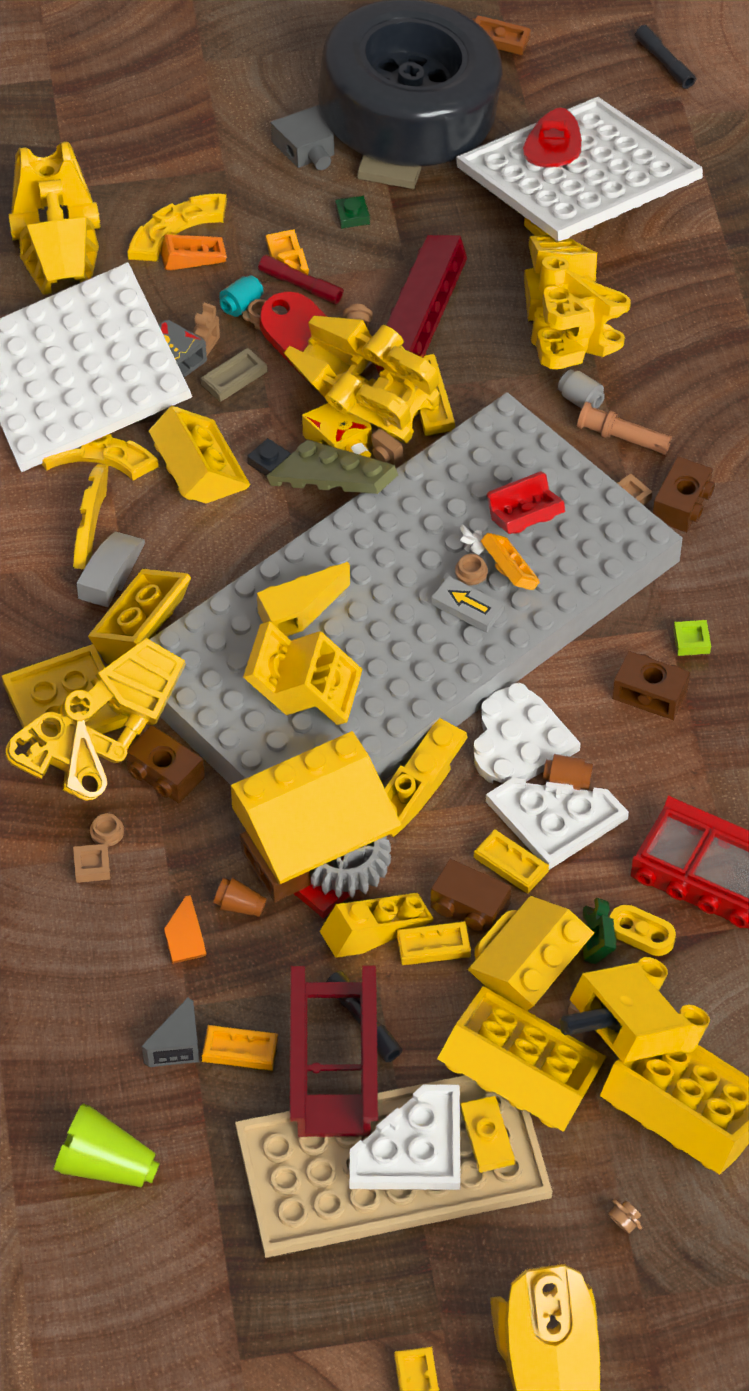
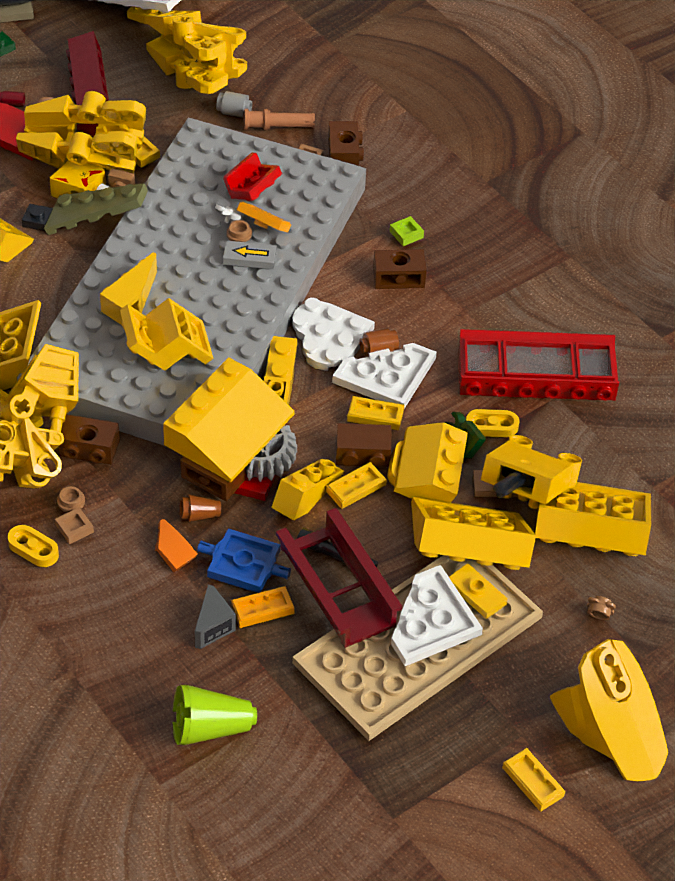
camera: 30 degrees left, 5 degrees down
(36, 871) = (35, 546): none -> yellow plate
(250, 982) = (243, 560): none -> blue plate

